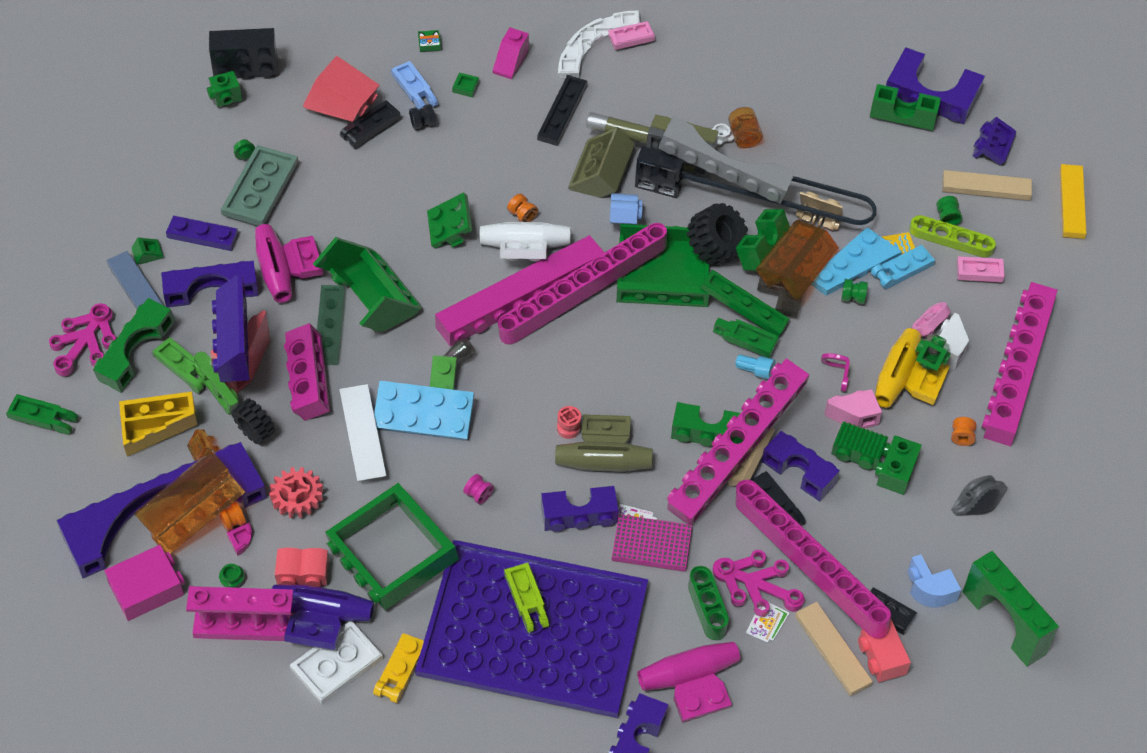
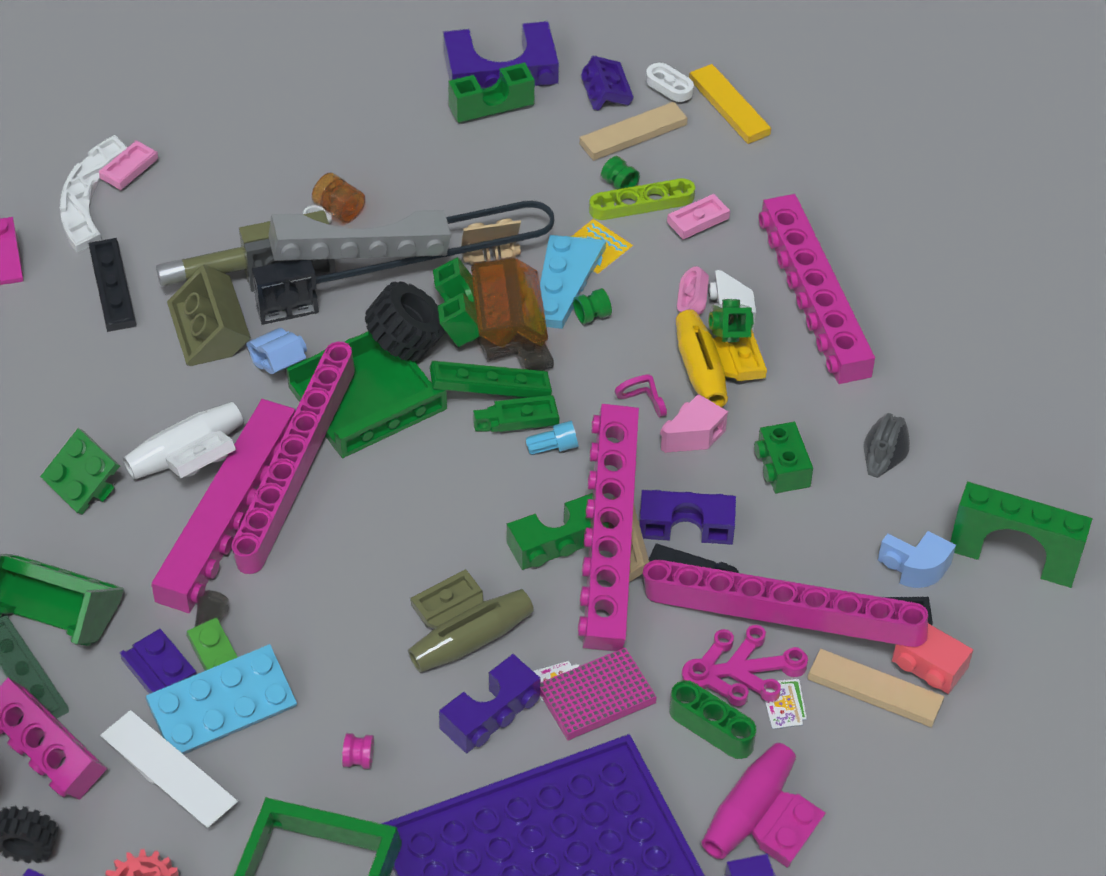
camera: 35 degrees left, 5 degrees down
(407, 364) = (157, 662): none -> dark purple plate
(522, 208) = (155, 413): orange wheel -> none
(526, 594) = (516, 834): lime hinge -> none
(569, 422) = (400, 616): coral wheel -> none
(859, 445) = (729, 461): green brick -> none
(903, 267) = (618, 255): medium azure plate -> none
(963, 431) = (819, 386): orange wheel -> none
(1043, 167) = (669, 82): none -> white plate

